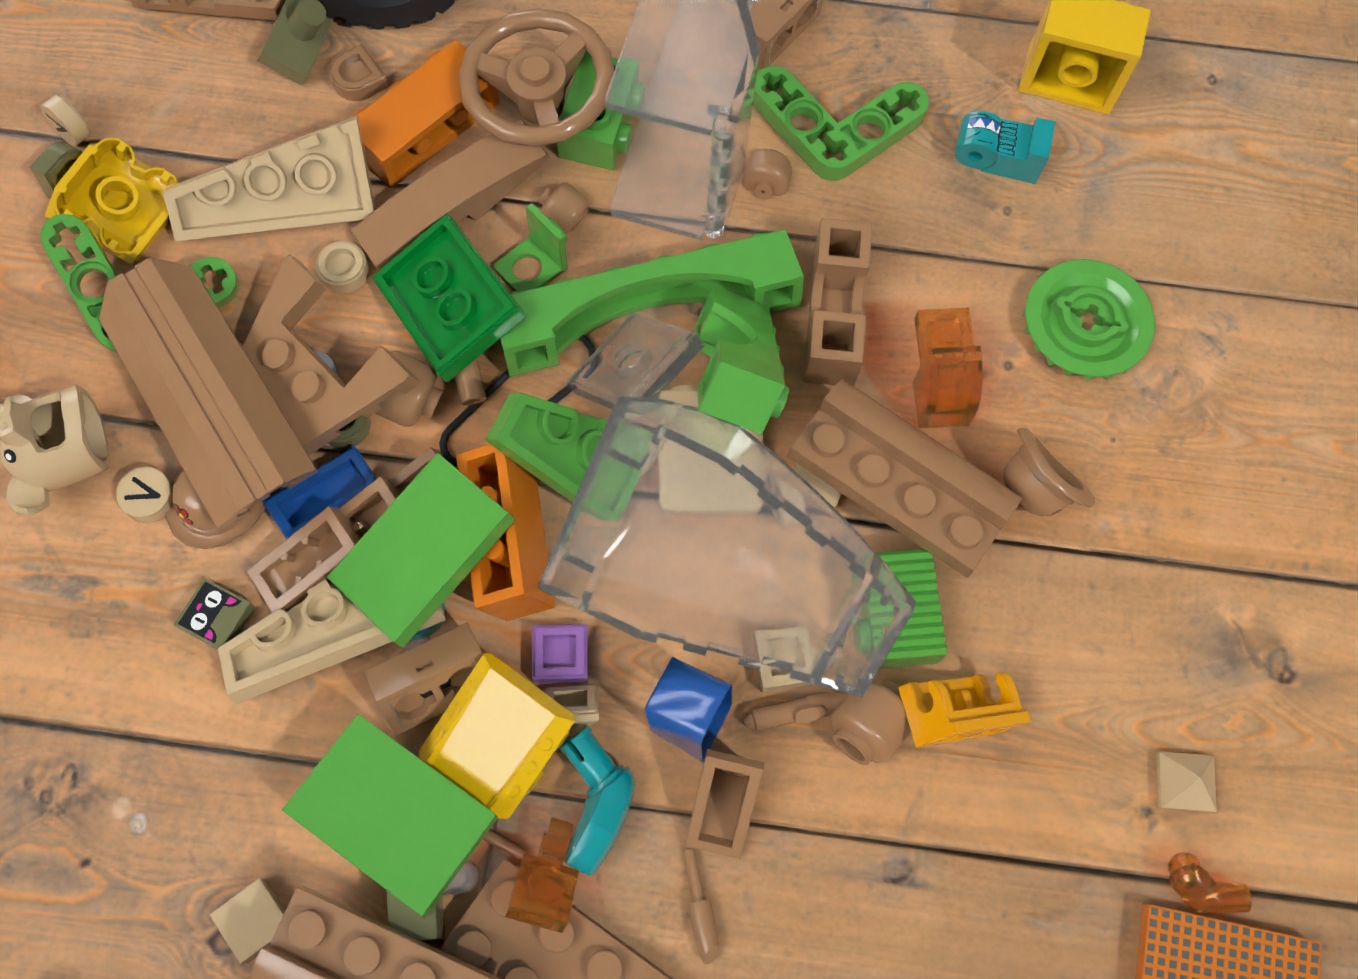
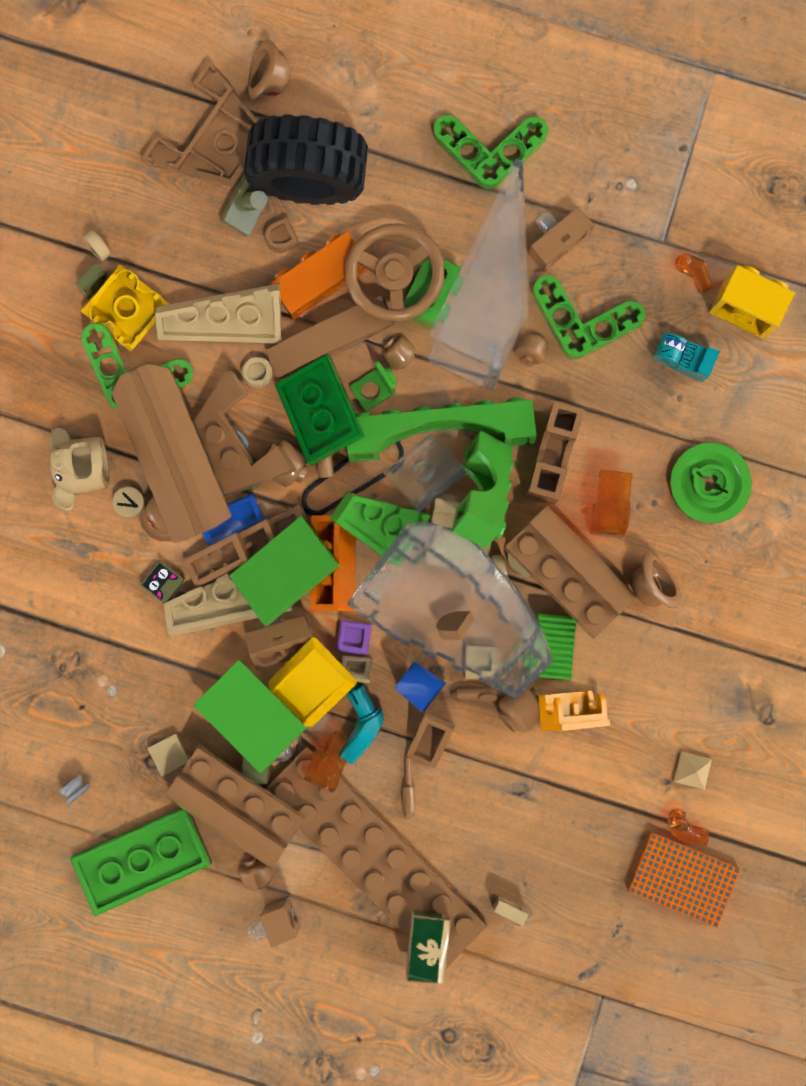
camera: 15 degrees right, 15 degrees up
(729, 595) = (454, 625): none -> medium nougat tile
(986, 32) = (695, 268): none -> clear orange arm

